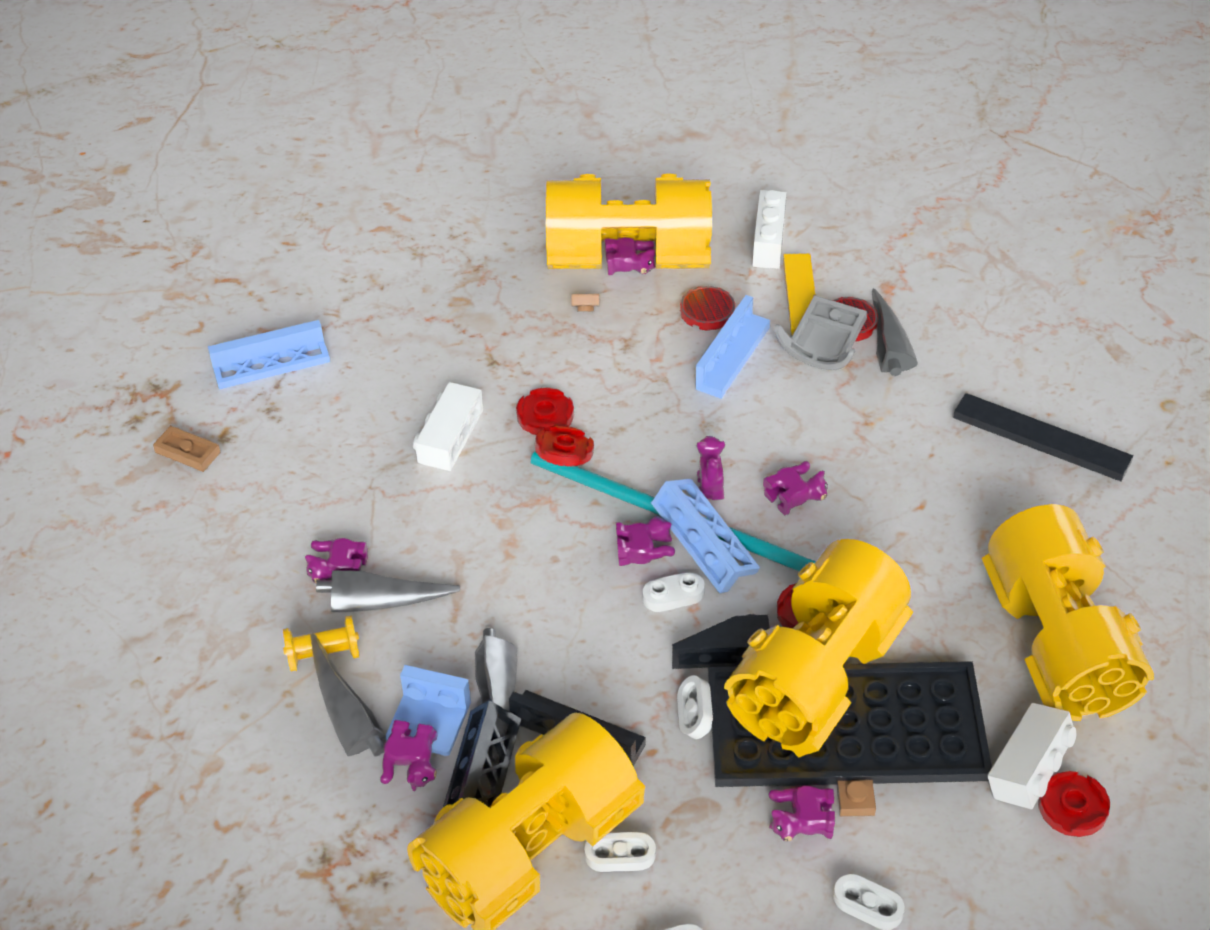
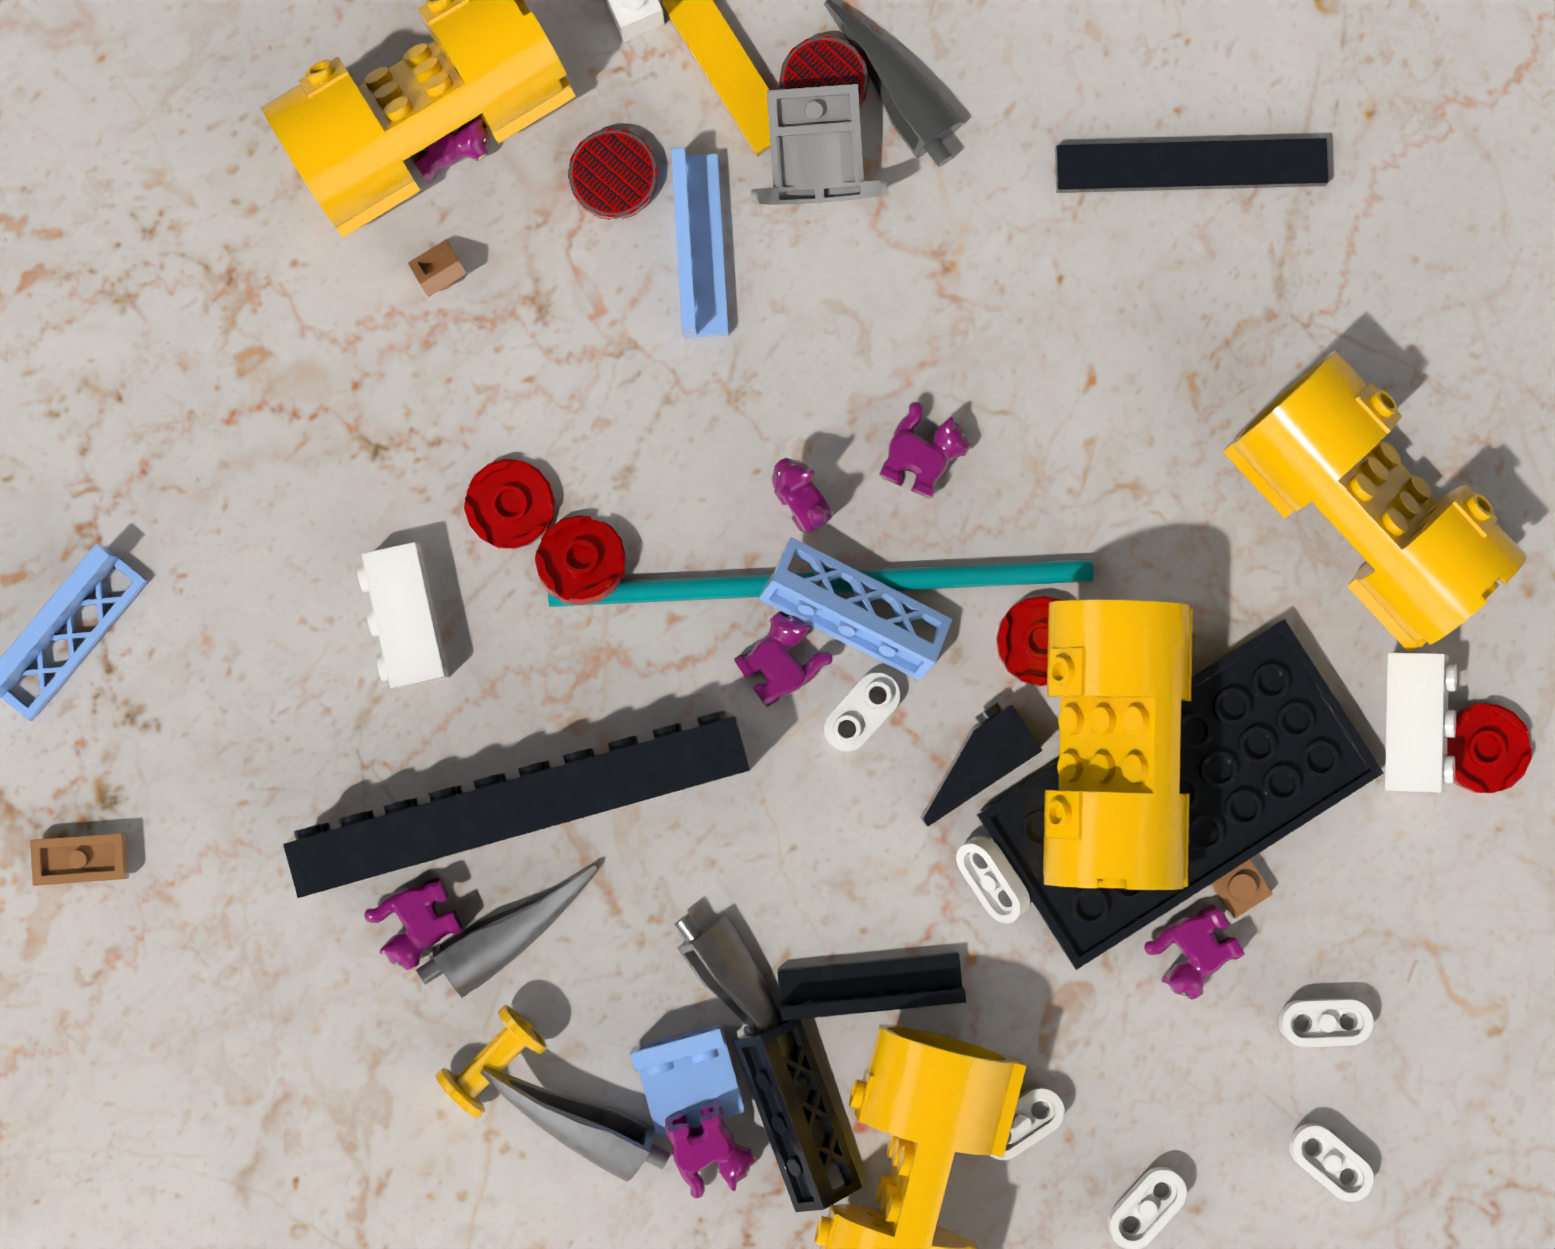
camera: 35 degrees left, 40 degrees up
(443, 526) = (515, 807): none -> black brick

